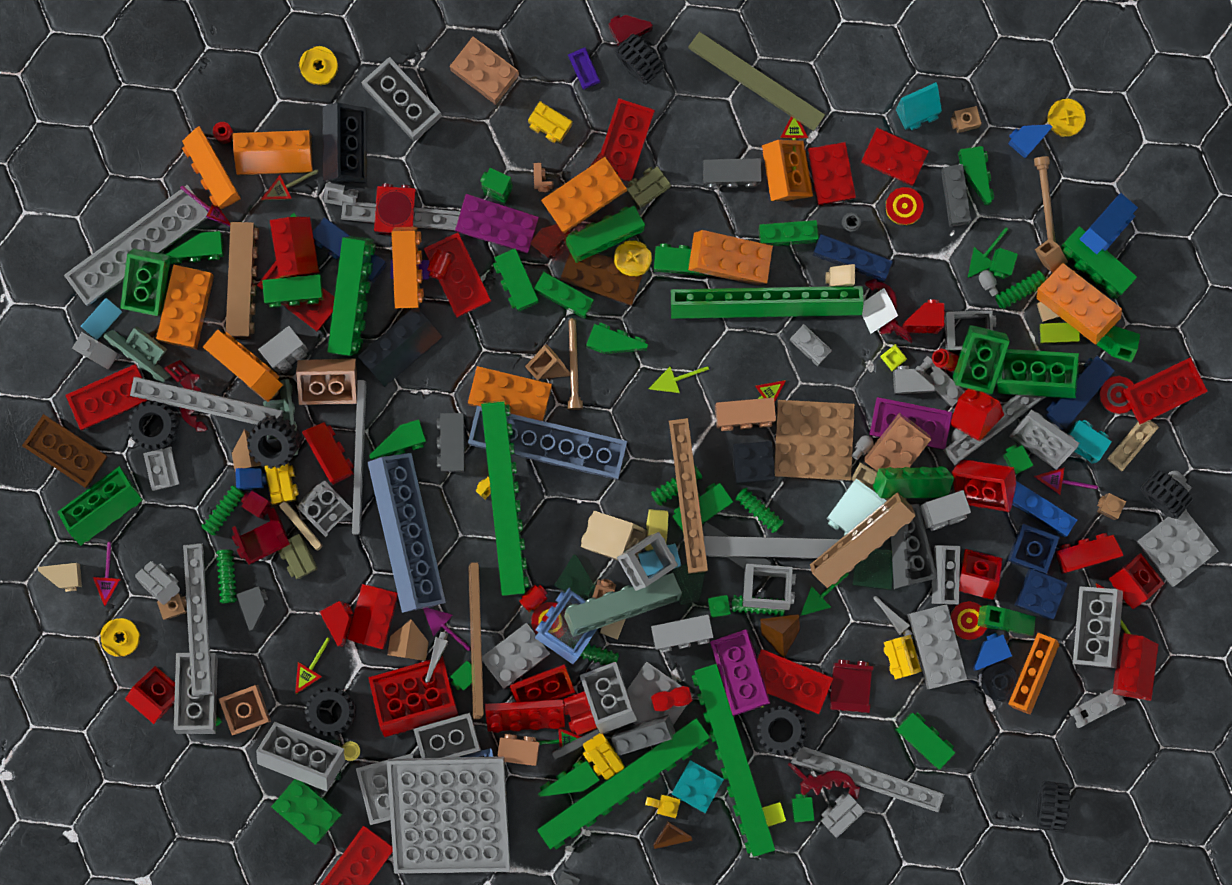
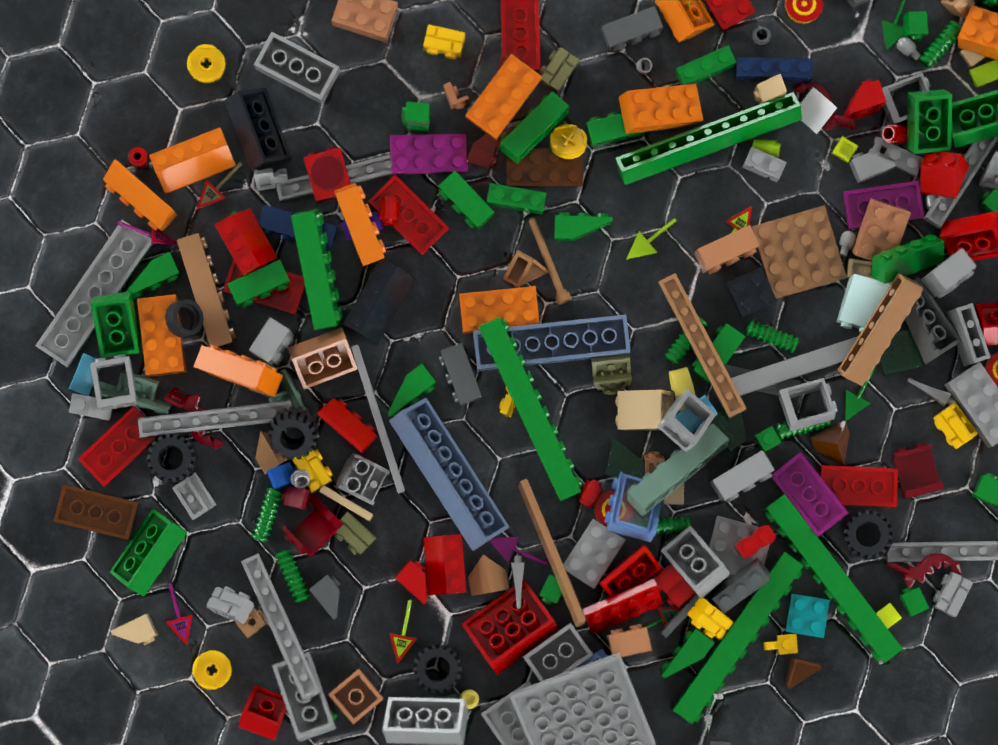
camera: 25 degrees left, 0 degrees up
(121, 355) = (116, 402): none -> light grey window
(198, 298) = (195, 313): none -> black tyre
(265, 491) = (300, 482): none -> light grey plate
(594, 491) = (611, 373): none -> olive slope
(734, 212) = (646, 67): none -> light grey hinge
(820, 329) = (770, 147): none -> lime cone

